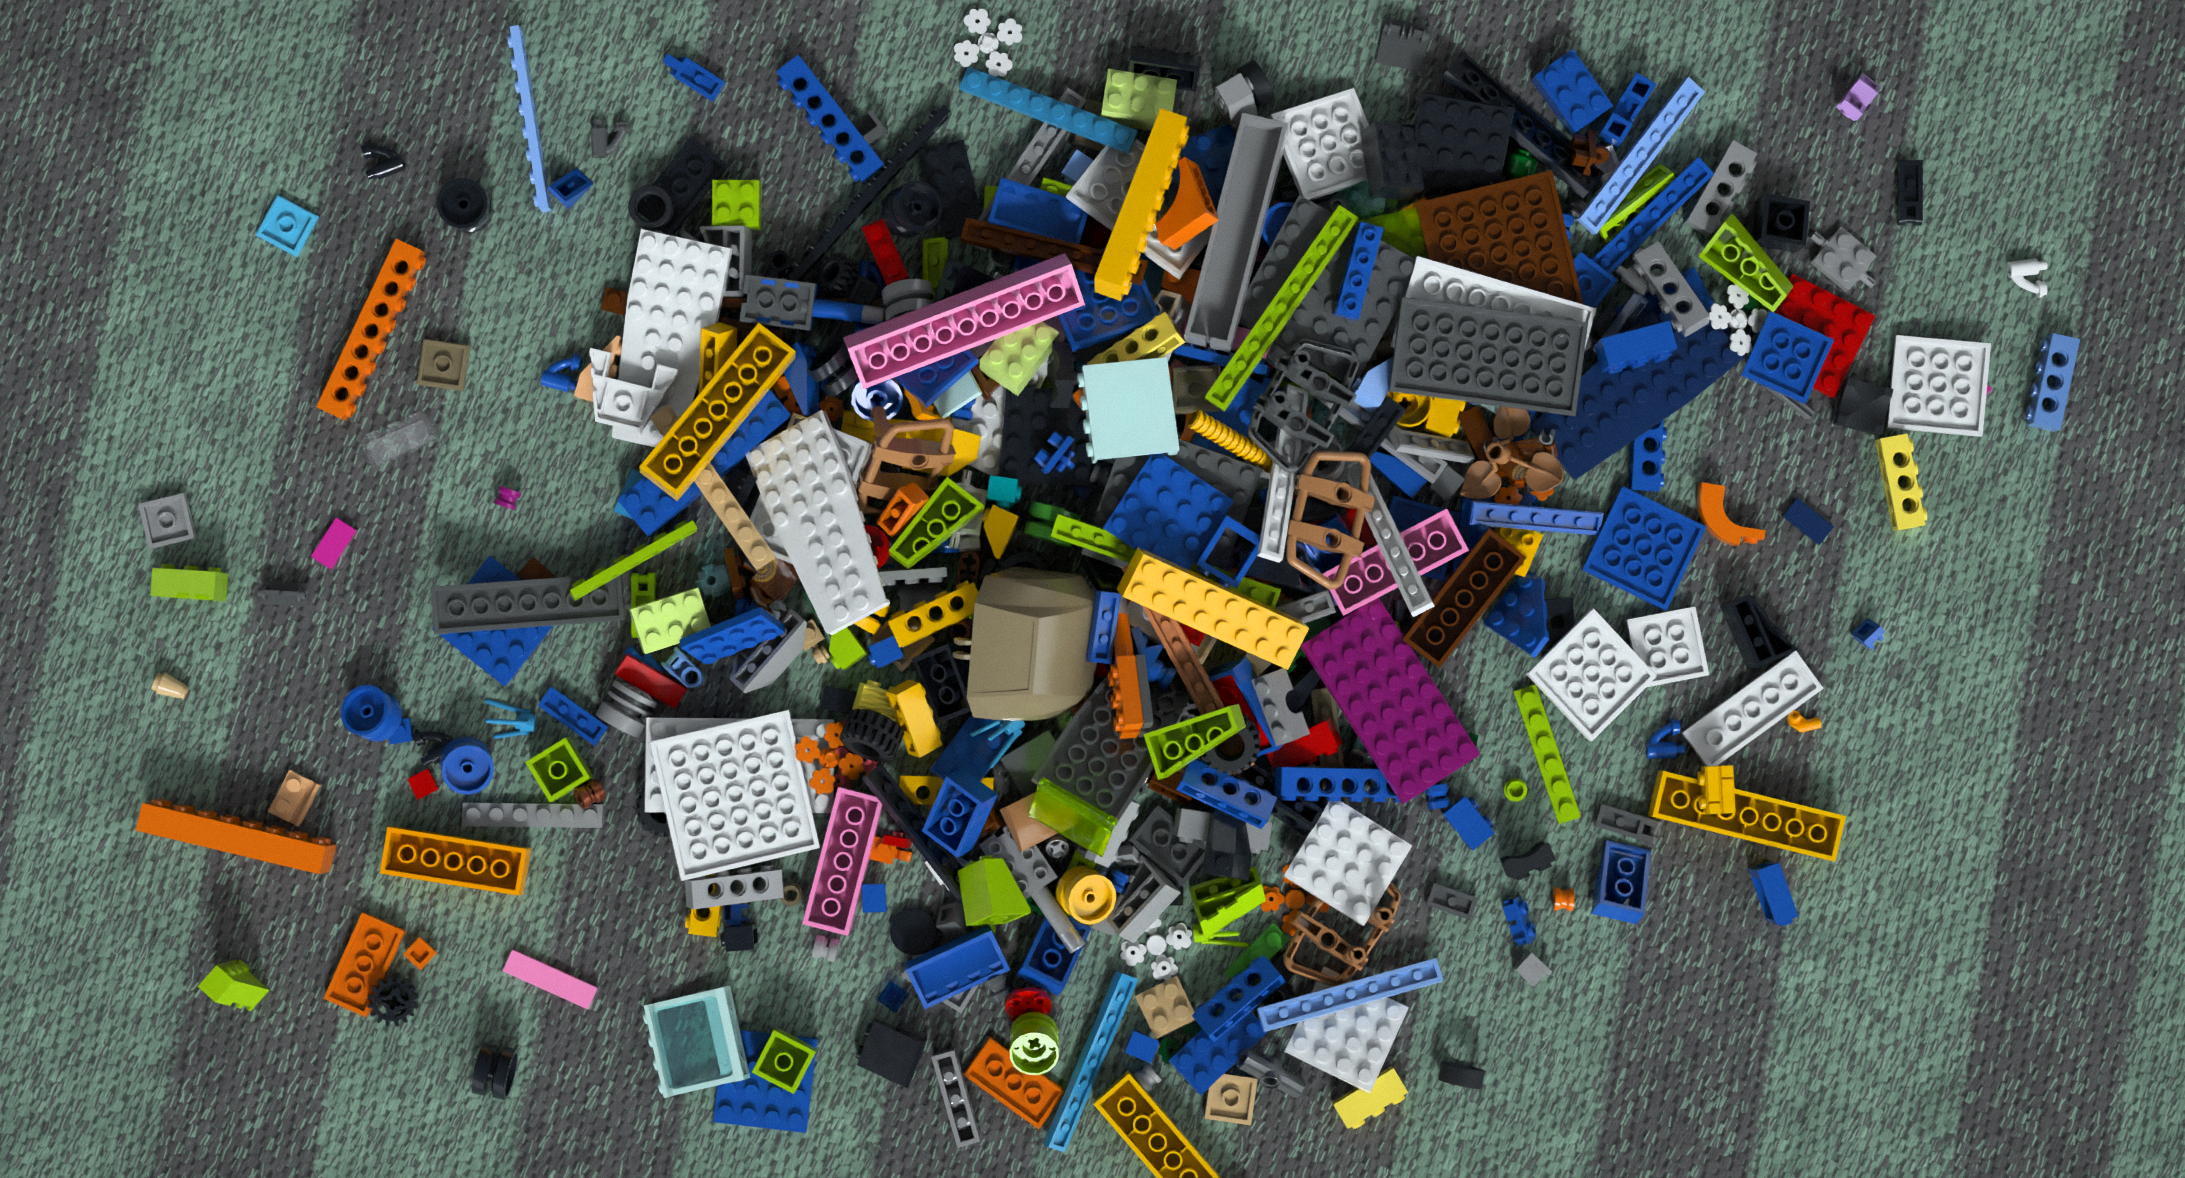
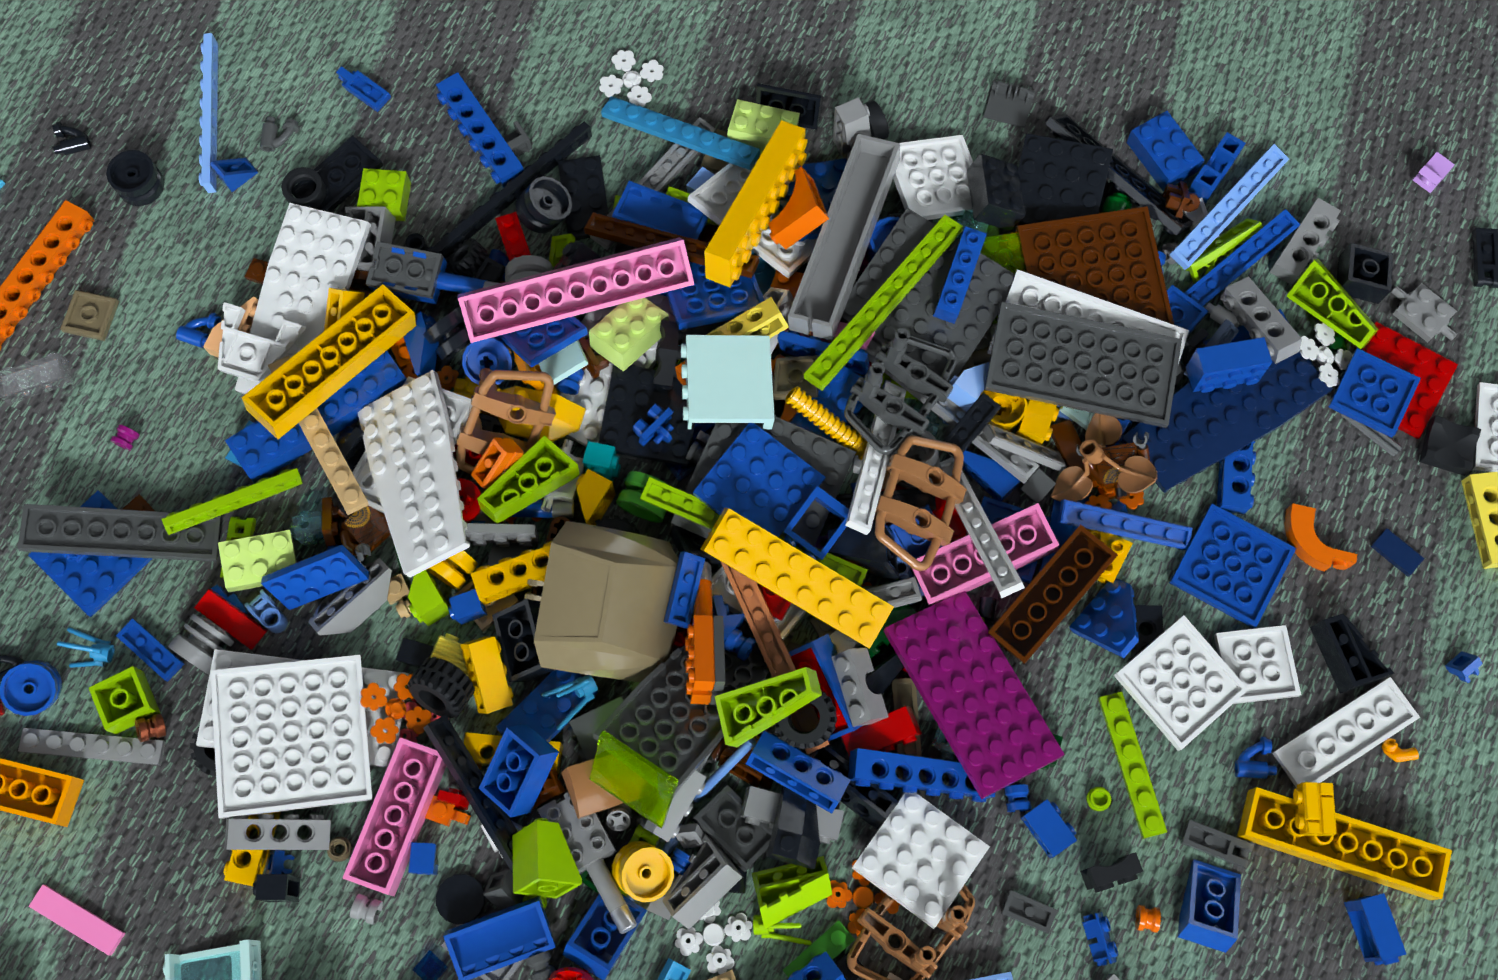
camera: 10 degrees right, 15 degrees down
(1159, 789) = (726, 767): none -> medium blue bar

